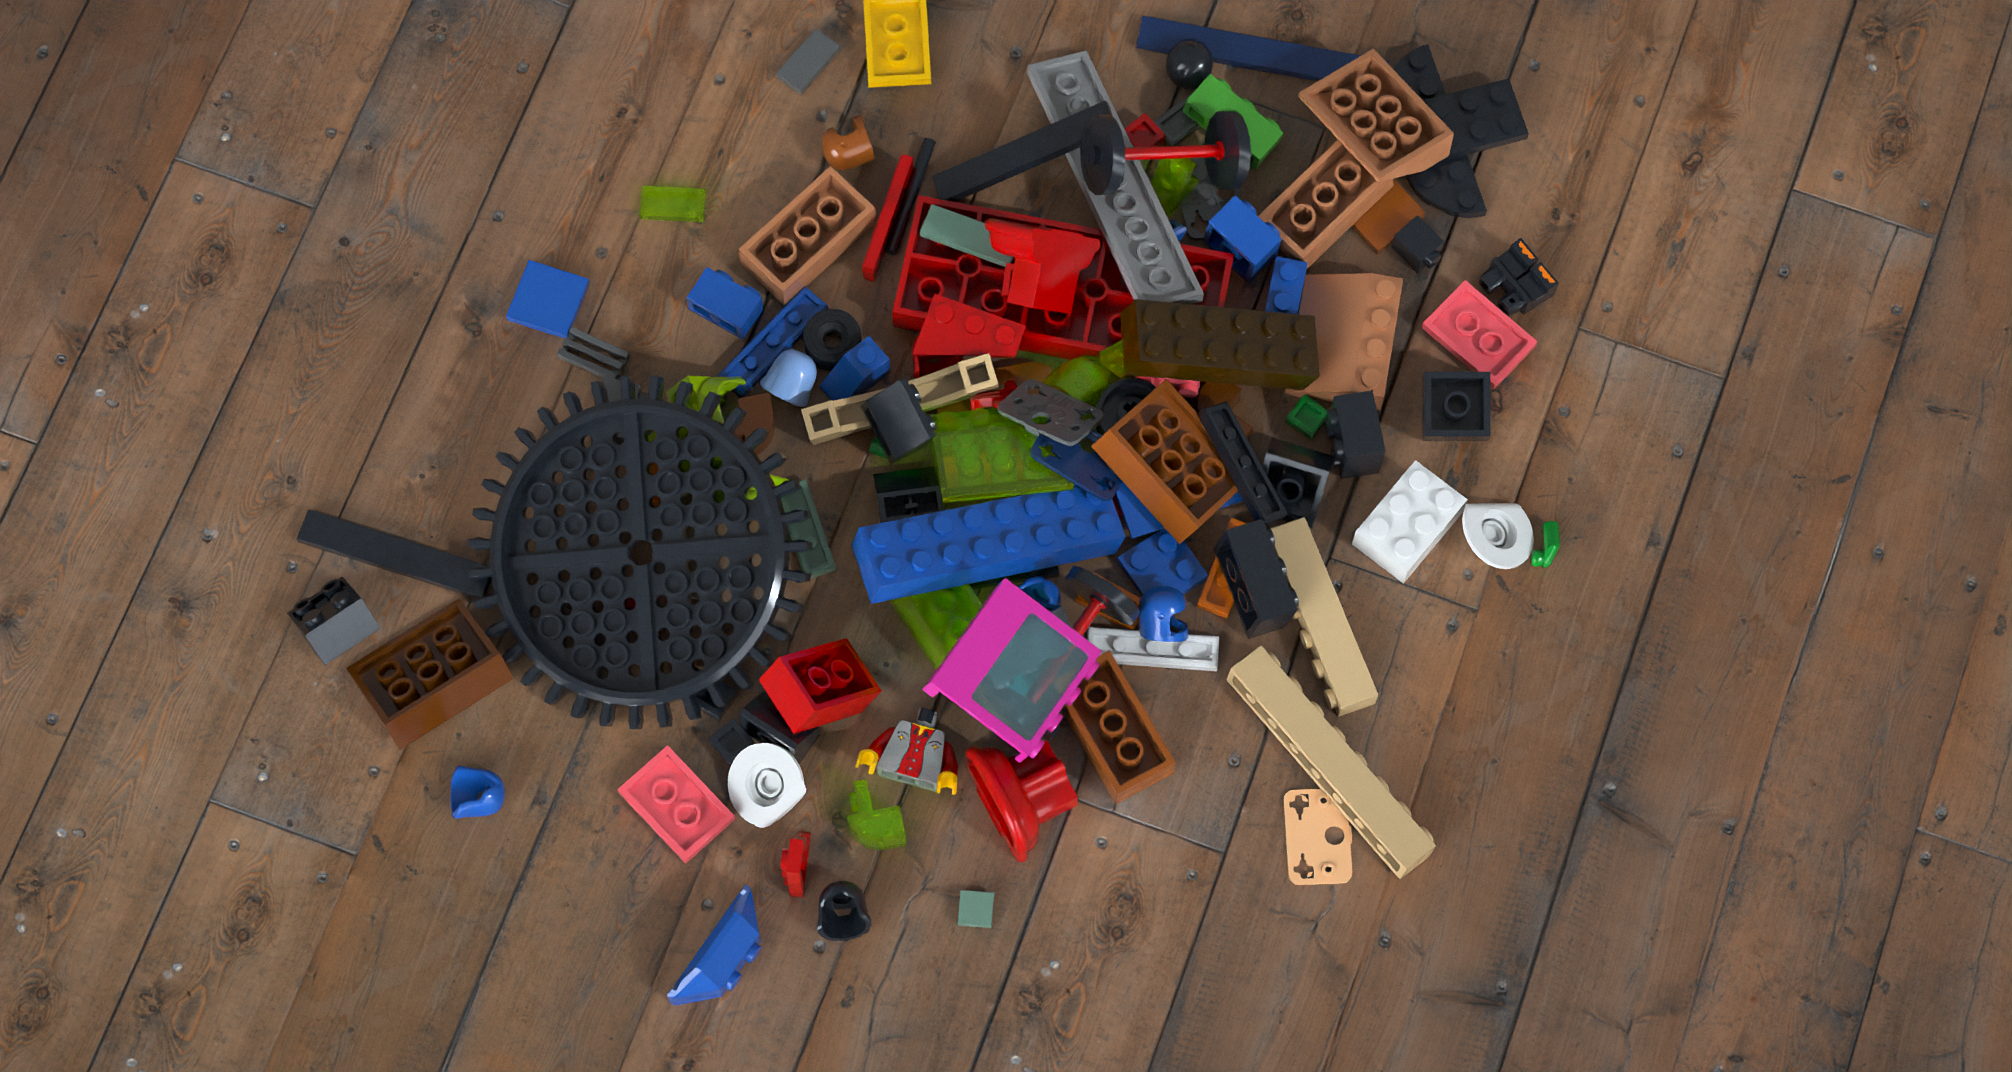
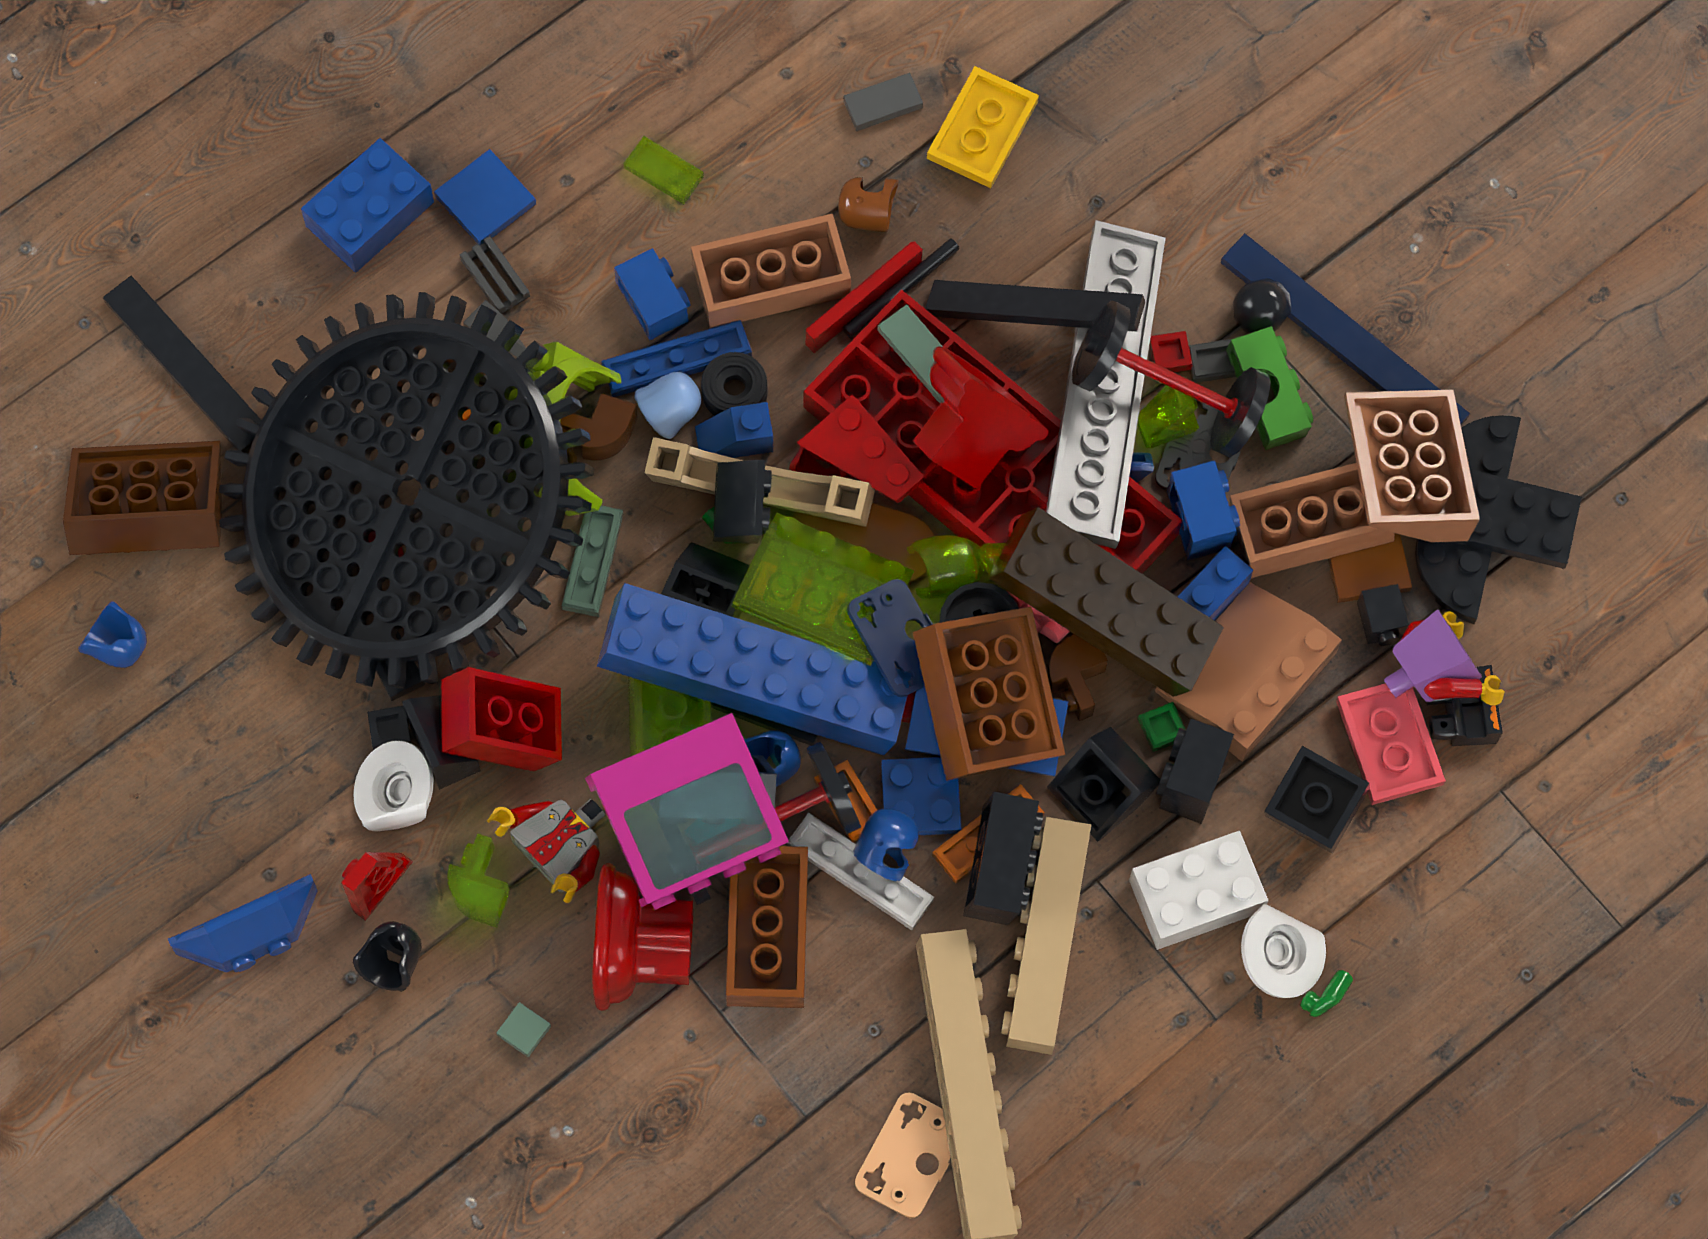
camera: 30 degrees right, 0 degrees up
(333, 620) = (86, 394): slope -> none
(462, 354) = (367, 205): none -> blue brick
(676, 804) = (298, 758): coral plate -> none
(992, 398) = (856, 534): red piece -> none
(1060, 408) = (904, 573): dark grey axle -> none
(1242, 463) = (1058, 735): black tile -> none
(1484, 257) = (1439, 664): none -> medium lavender torso

